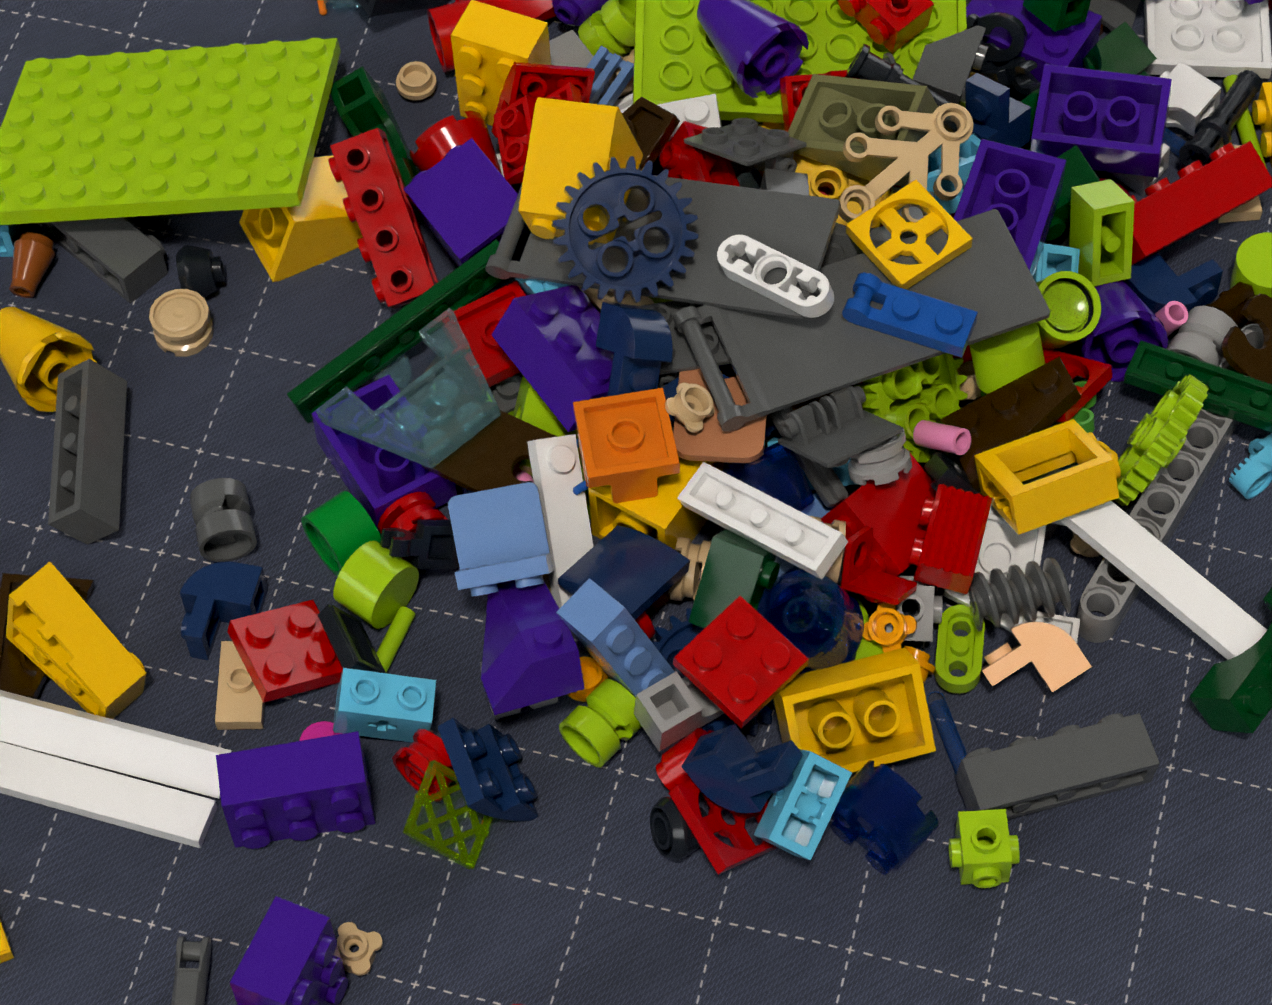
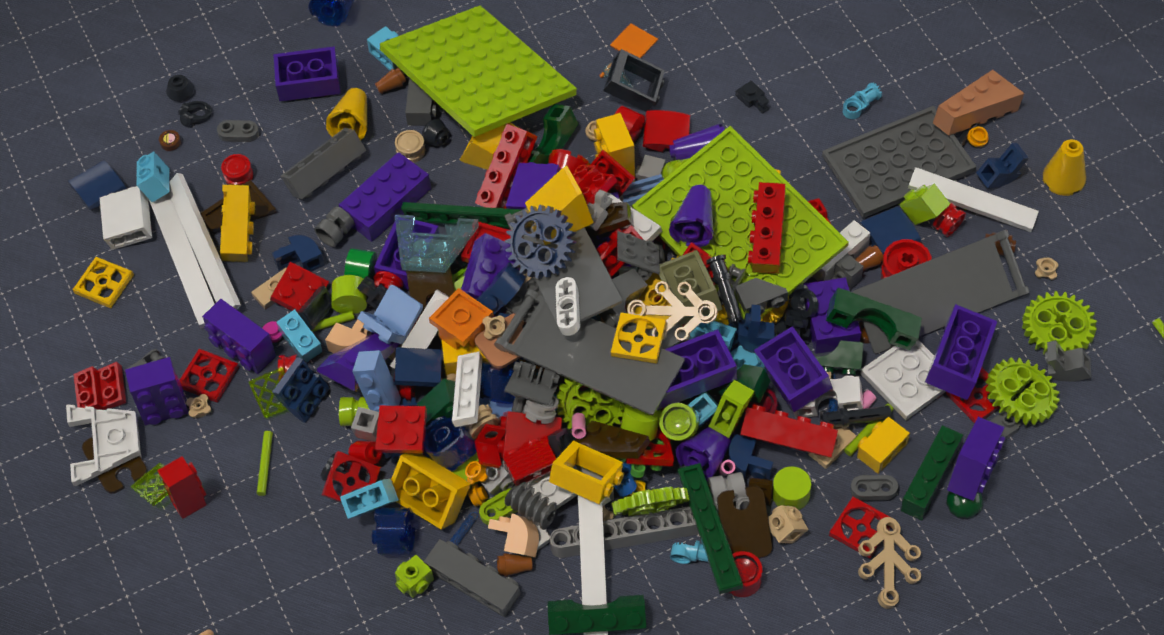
camera: 50 degrees right, 0 degrees up
(242, 410) = (383, 193): none -> dark purple brick
(320, 851) = (223, 381): none -> red piece
(455, 648) = (343, 336): none -> light nougat brick
(560, 926) = (264, 463): none -> lime bar
(735, 774) = (361, 465): dark blue brick -> none
(910, 315) = (601, 367): blue plate -> none
(1076, 701) = (512, 564): none -> dark orange cone

